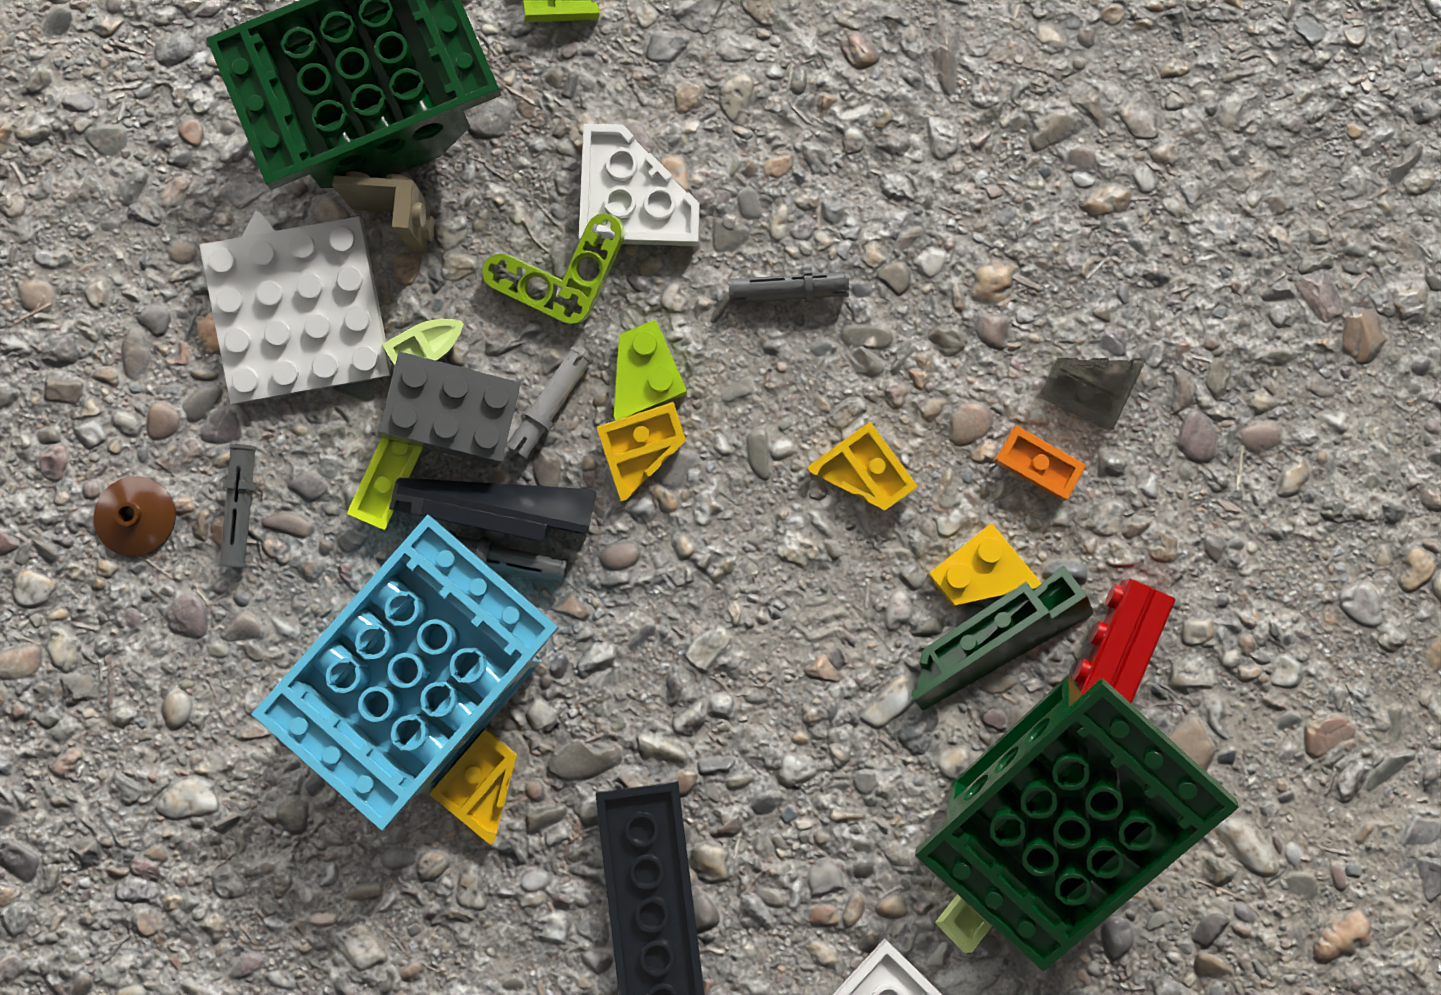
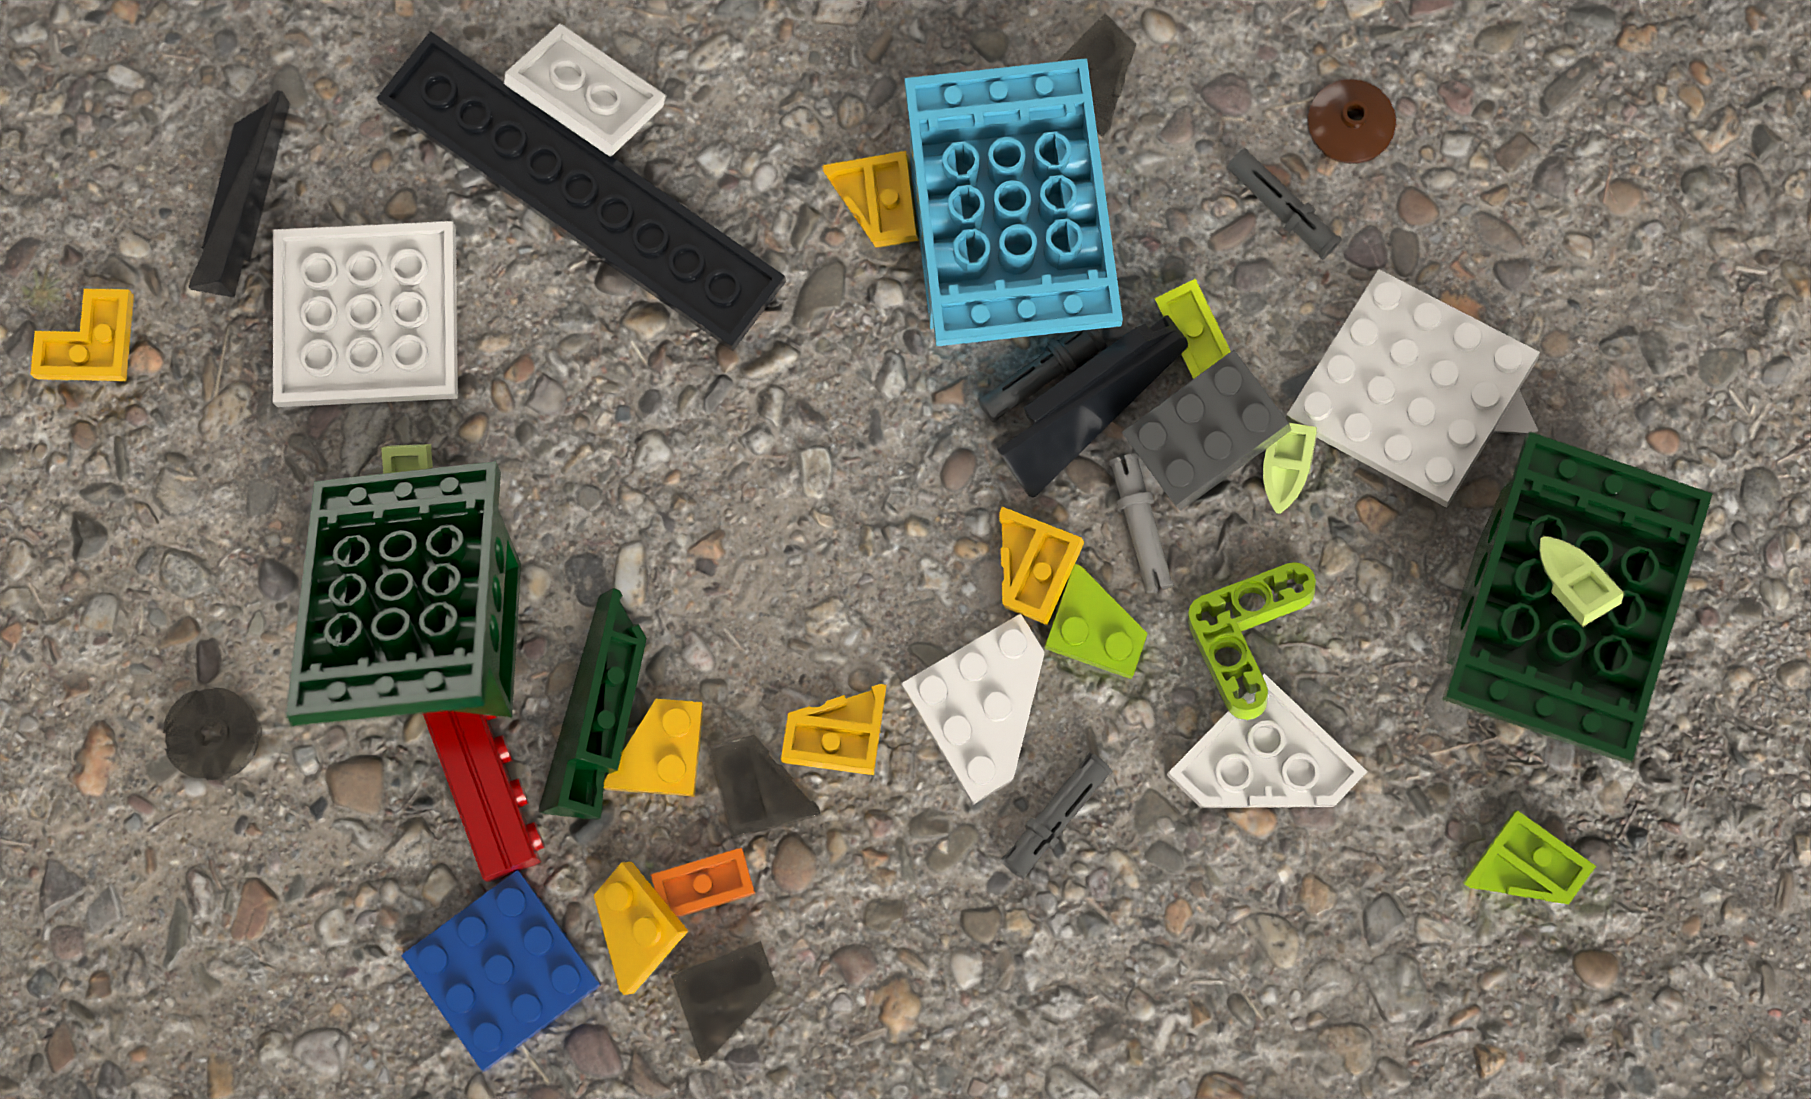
camera: 135 degrees right, 5 degrees down
(232, 728) = (1108, 58): none -> clear smoke wing
(344, 65) = (1578, 580): none -> yellowish green plate
(394, 195) = (1413, 550): dark tan bracket -> none
(761, 398) = (981, 705): none -> white plate
(949, 486) = (755, 788): none -> clear smoke wing
(1105, 480) = (635, 925): none -> yellow wing
(1210, 539) = (501, 970): none -> blue plate
(1275, 890) = (208, 707): none -> clear smoke plate

